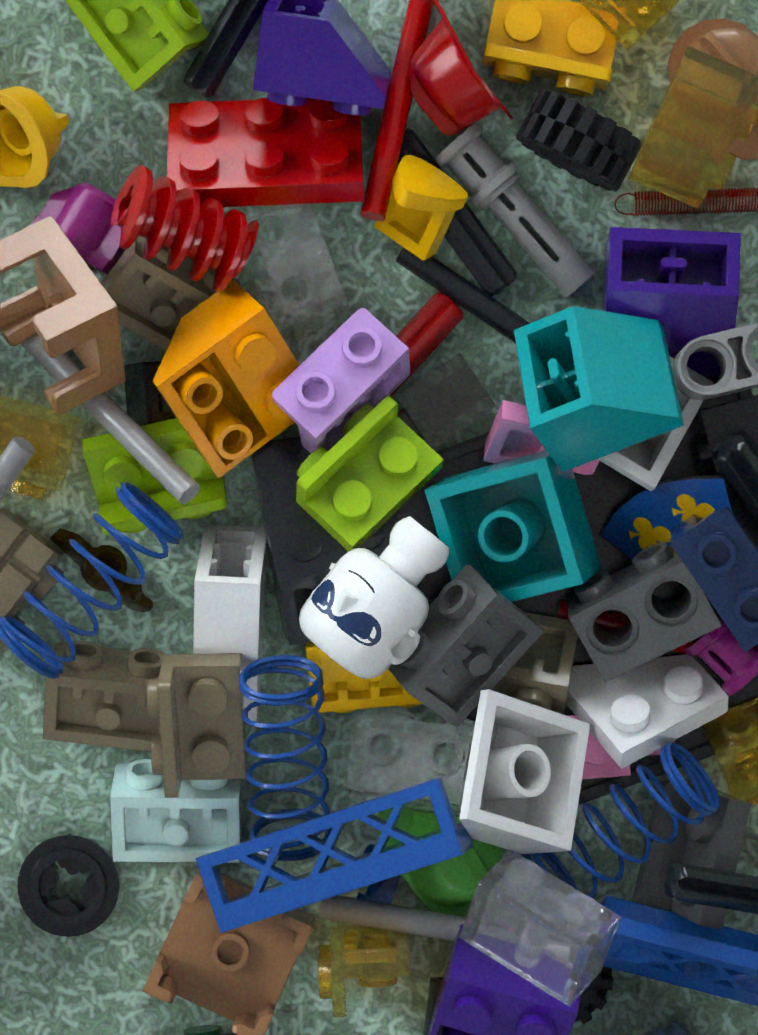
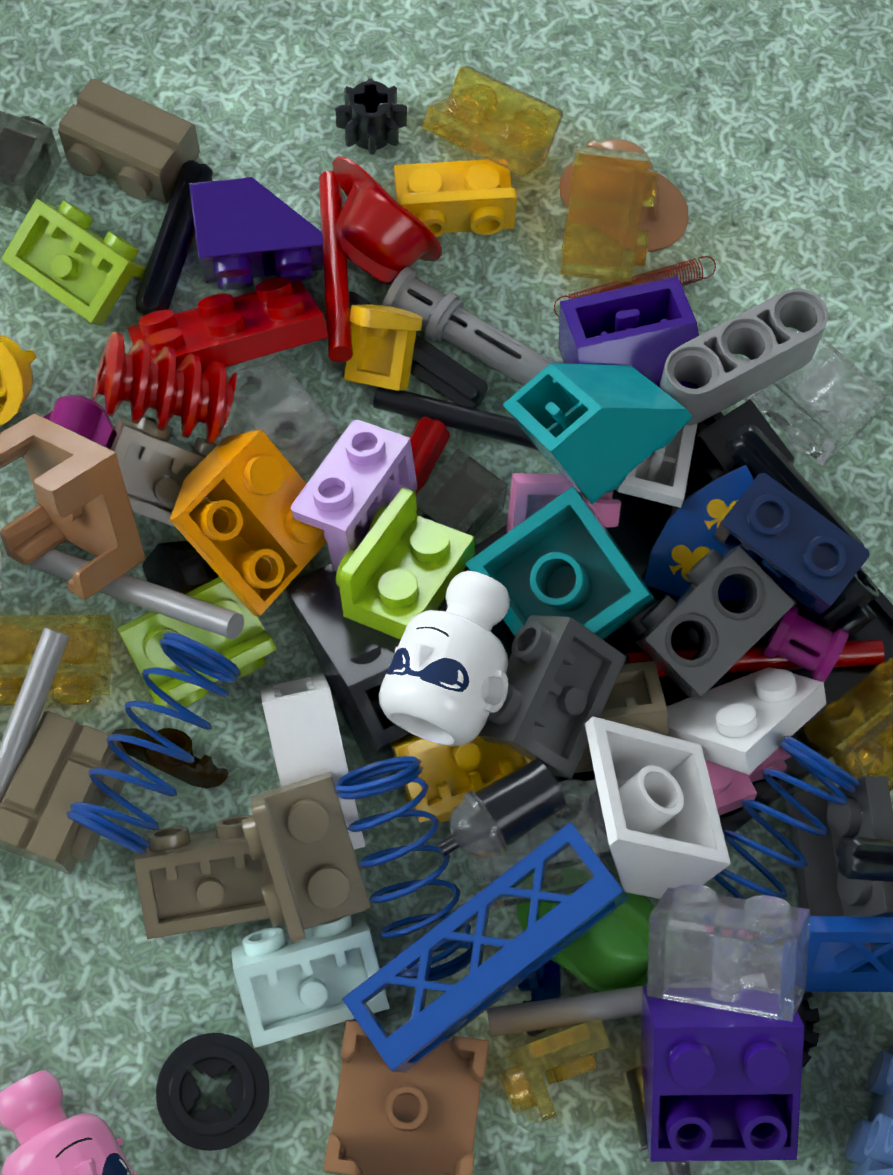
camera: 25 degrees left, 20 degrees down
(382, 744) = (503, 811): none -> black piece
(579, 140) = (506, 250): black tyre -> none

